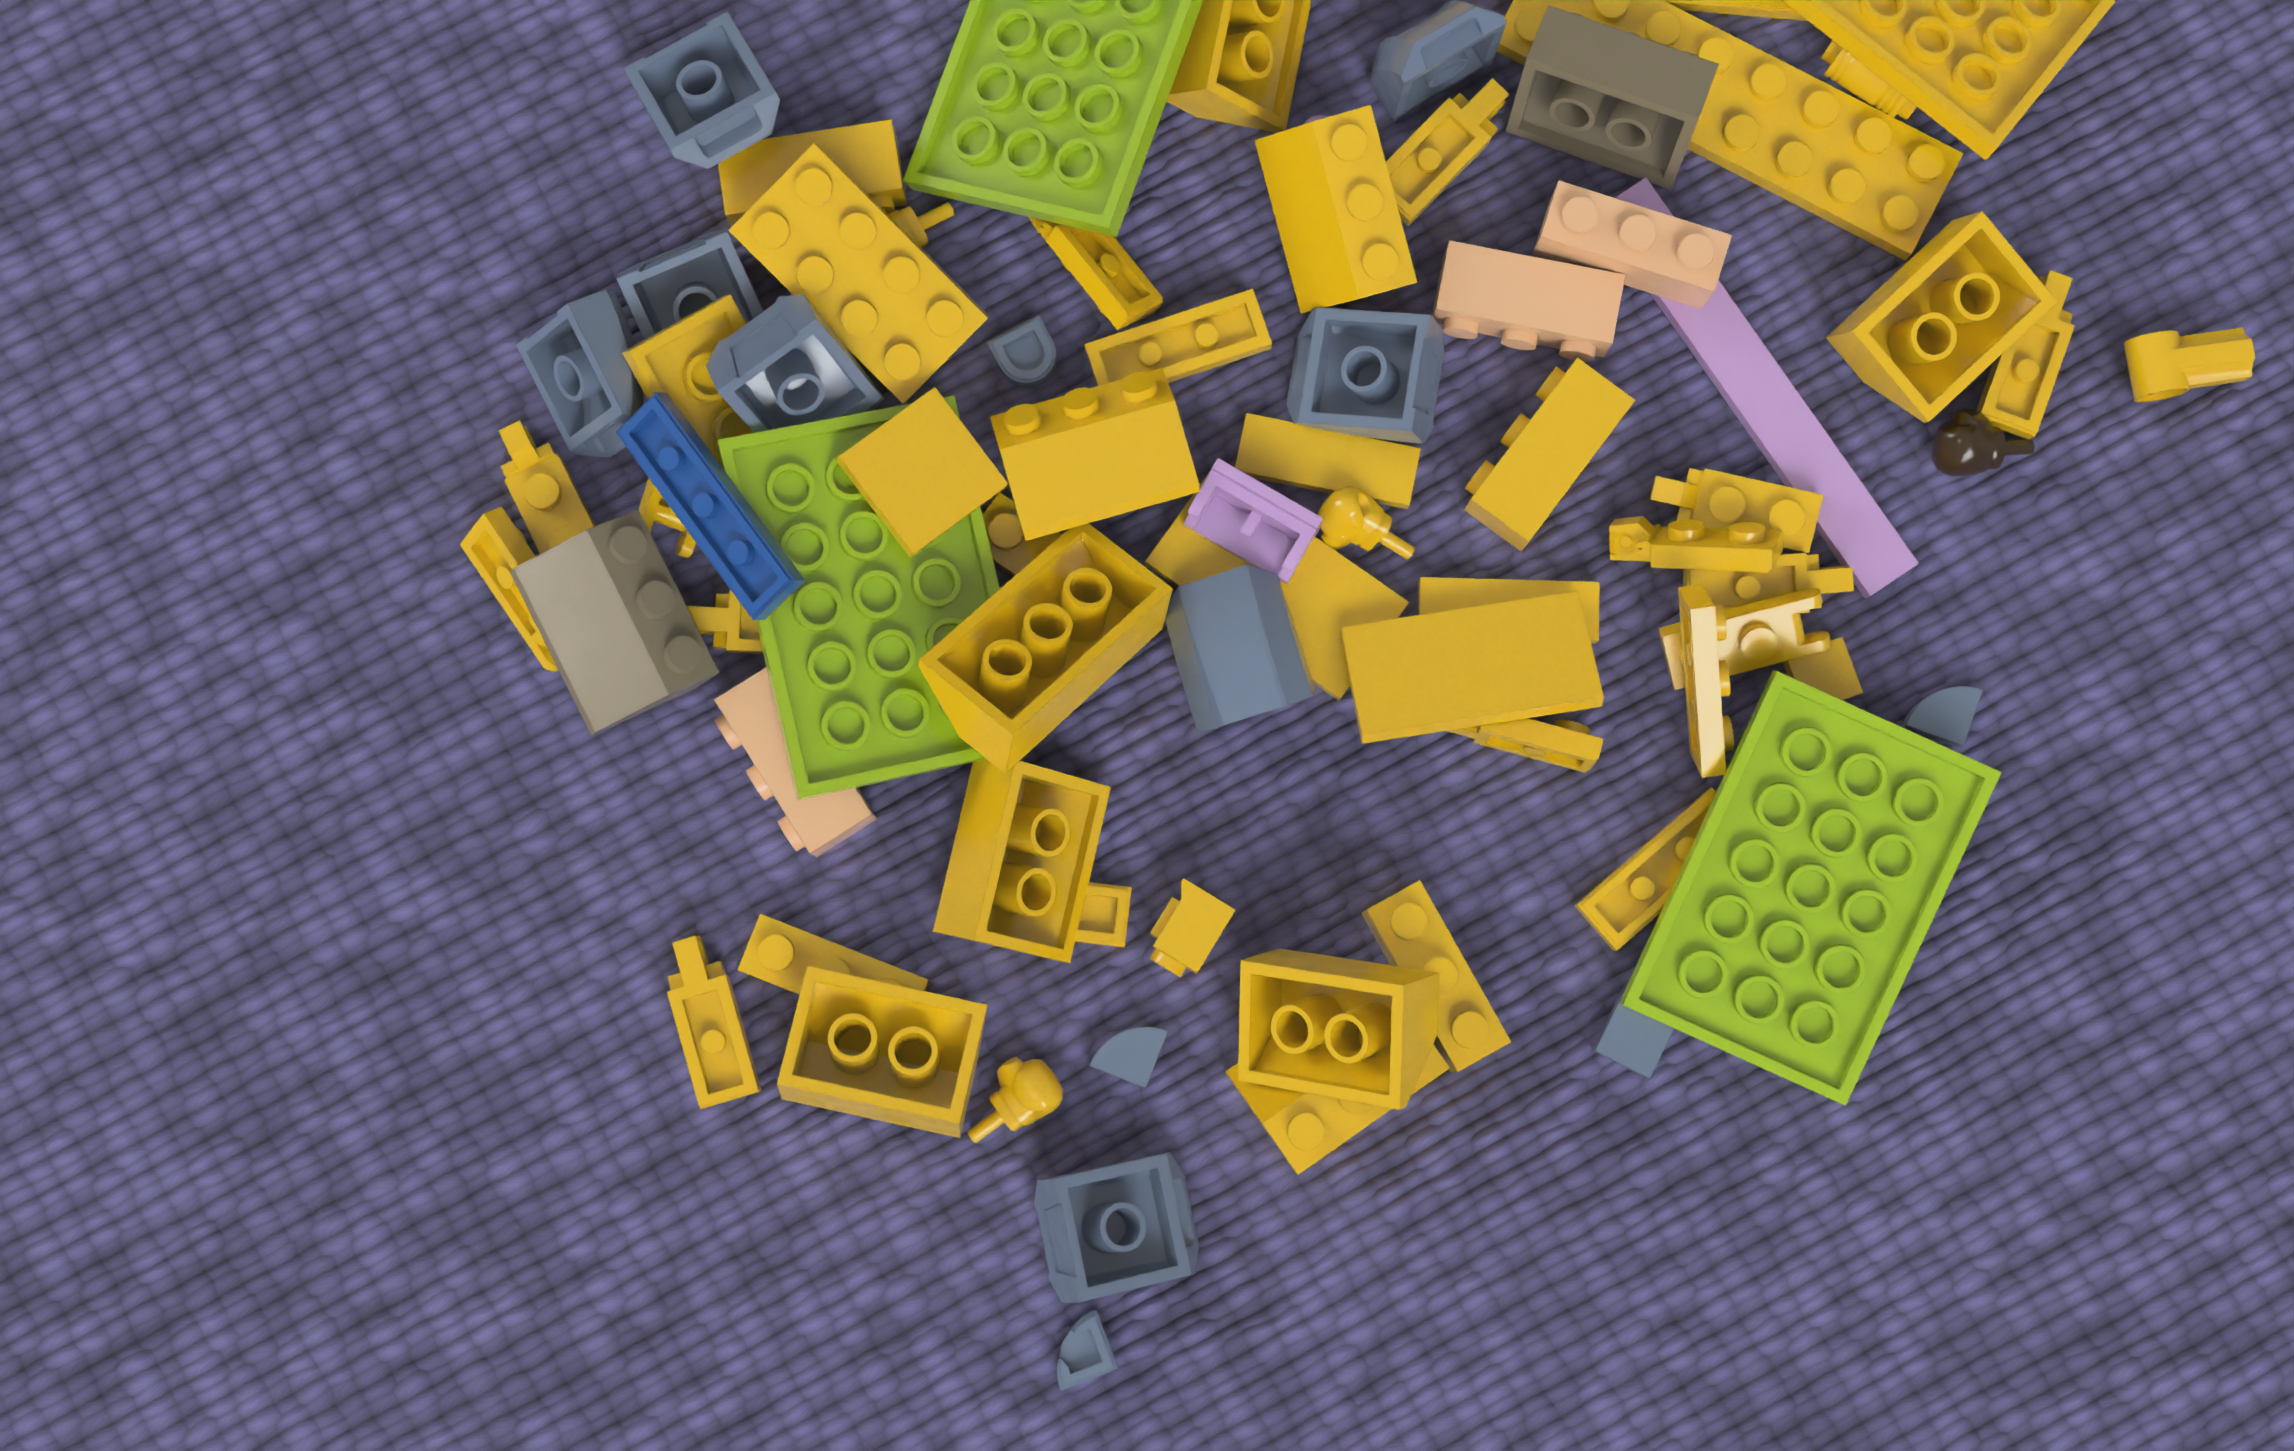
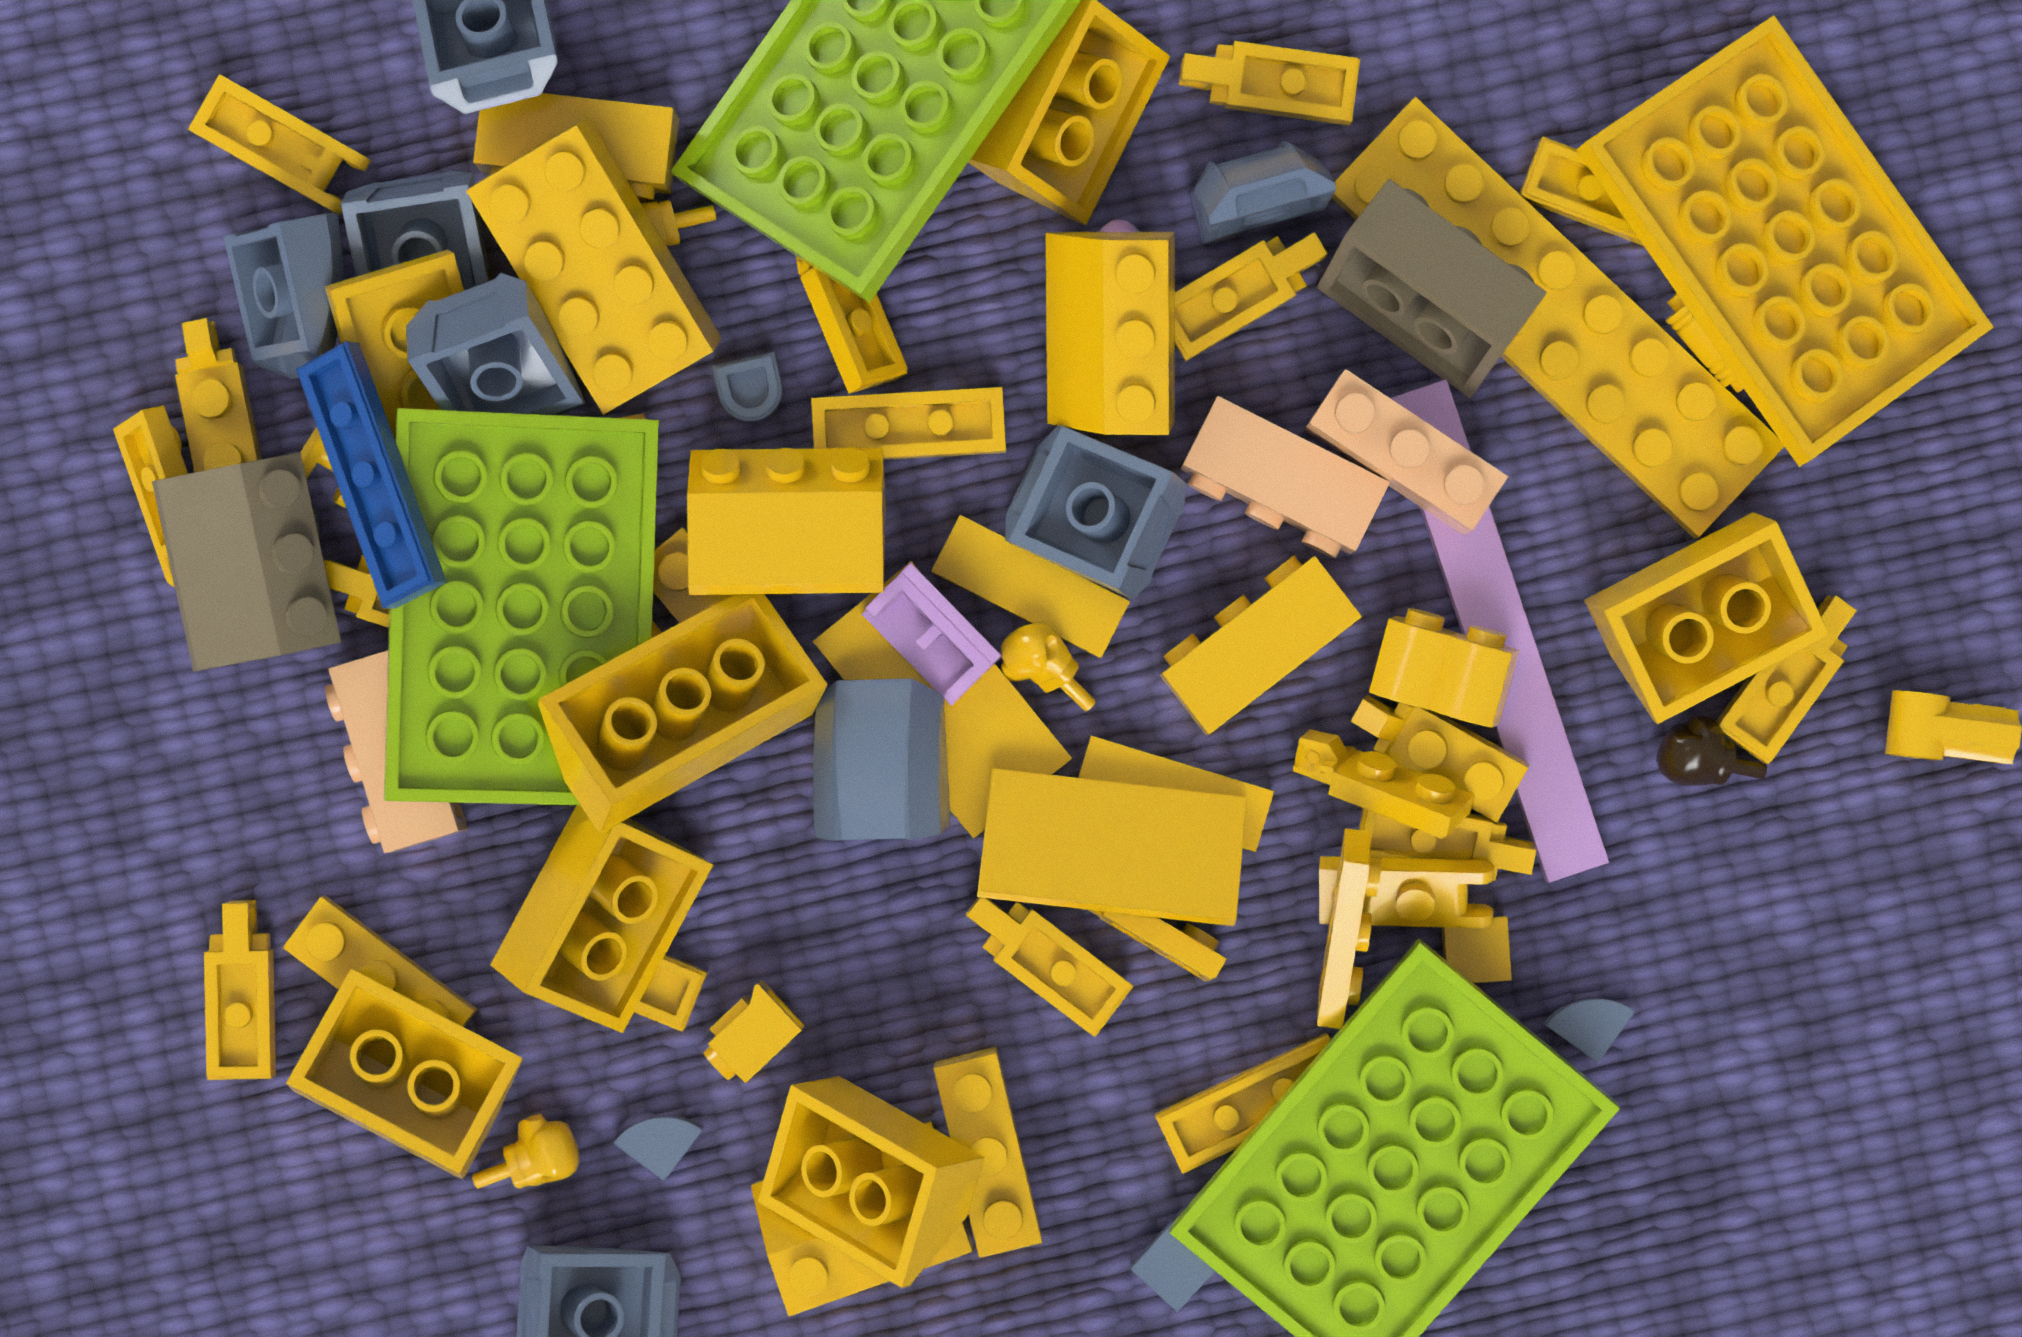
camera: 15 degrees right, 5 degrees up
(538, 249) = (273, 141): none -> yellow hinge
(922, 472) = (601, 495): yellow tile -> none
(1442, 791) = (1051, 963): none -> yellow hinge
(1721, 428) = (1445, 669): none -> yellow brick

